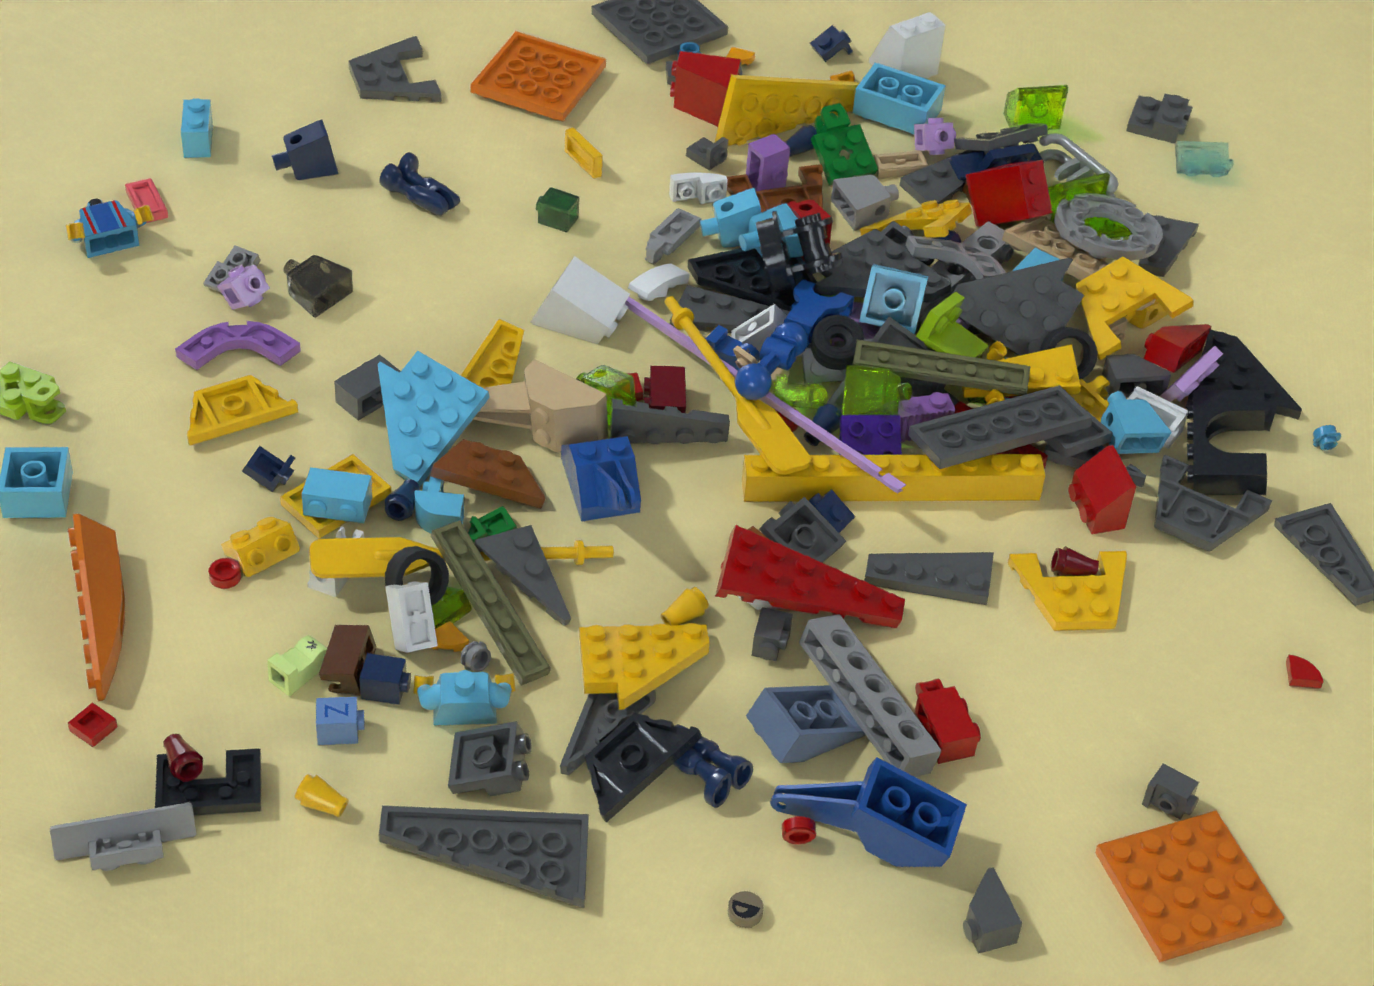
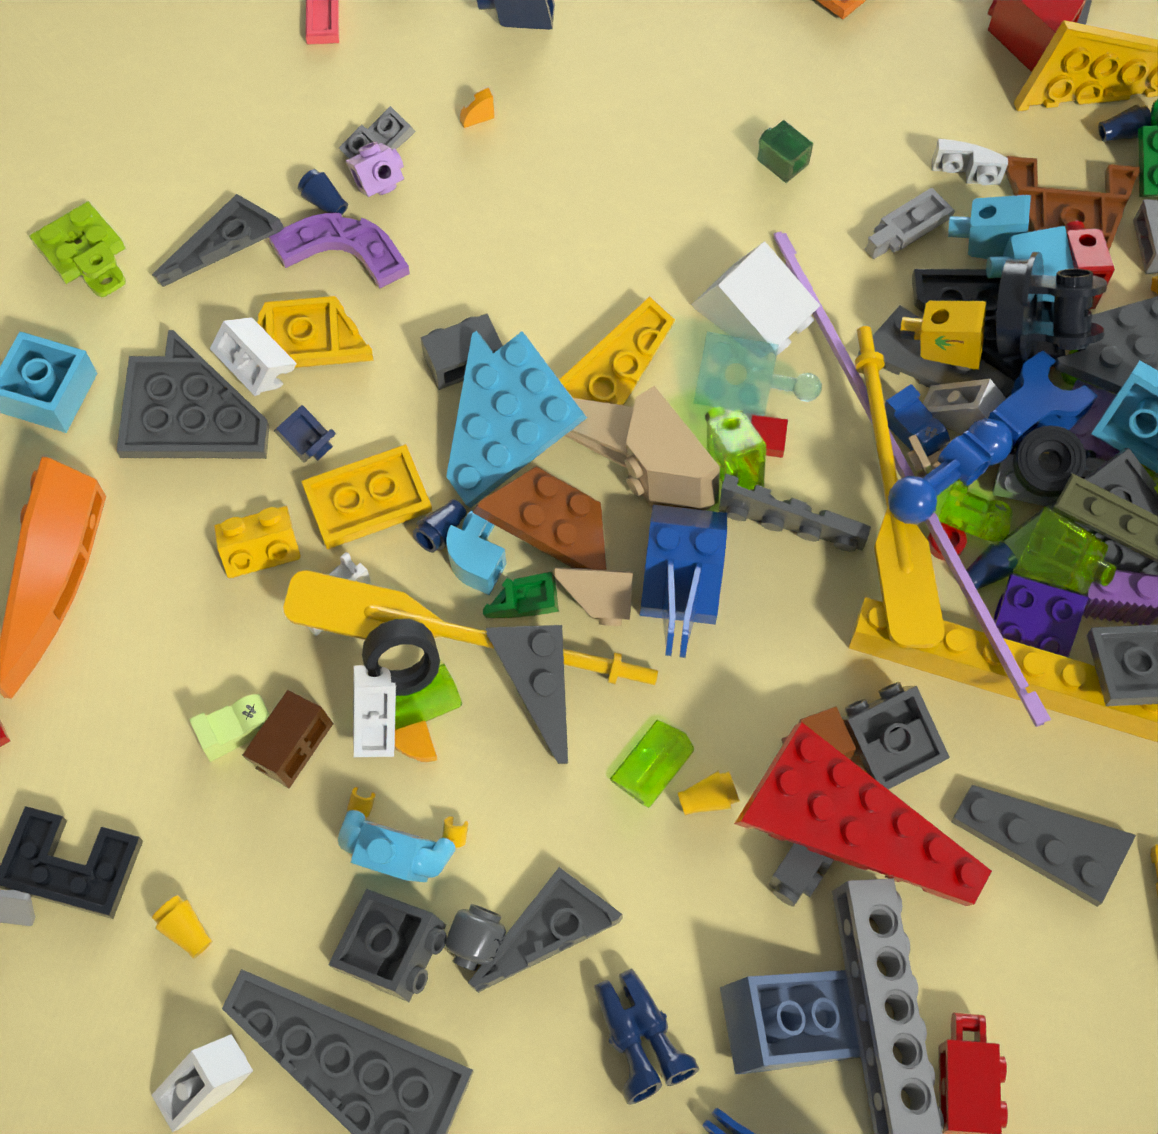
camera: 25 degrees right, 20 degrees up
(108, 227) = (257, 43): torso -> none
(138, 355) = (227, 232): none -> dark grey wing
(162, 476) = (186, 410): none -> dark grey wing
(183, 759) = (42, 829): dark red cone -> none
(201, 424) = (251, 355): none -> white hinge
(203, 313) = (320, 191): none -> dark blue cone
(224, 573) = (204, 565): red tile -> none
(307, 234) = (479, 110): none -> light orange tile
(317, 283) = (462, 184): clear smoke torso -> none
(337, 495) = (357, 507): medium azure brick -> none
(338, 720) = (241, 825): medium blue brick -> none
(383, 883) = (201, 1081): none -> white slope
(384, 679) = (316, 782): dark blue brick -> none
(419, 190) = (644, 88): dark blue piece -> none
(475, 656) = (434, 782): light grey plate -> none
(490, 603) = (477, 716): olive tile -> none
(546, 505) = (599, 592): none -> tan slope
(552, 736) = (475, 937): none -> dark grey head
(583, 153) = (847, 75): yellow tile -> none
(599, 336) = (754, 391): none -> clear light blue plate
(634, 601) = (653, 763): none -> clear neon green slope
(634, 759) = (558, 1007): black wing -> none
(637, 658) = (621, 853): yellow wing -> none
(657, 280) = (861, 290): white slope -> none
(666, 387) = (810, 465): dark red brick -> none
(708, 153) = (1002, 110): dark grey bracket -> none
(732, 284) = (949, 332): none -> yellow torso
(768, 163) = (1067, 154): medium lavender brick -> none
(832, 510) = (946, 705): dark blue bracket -> none

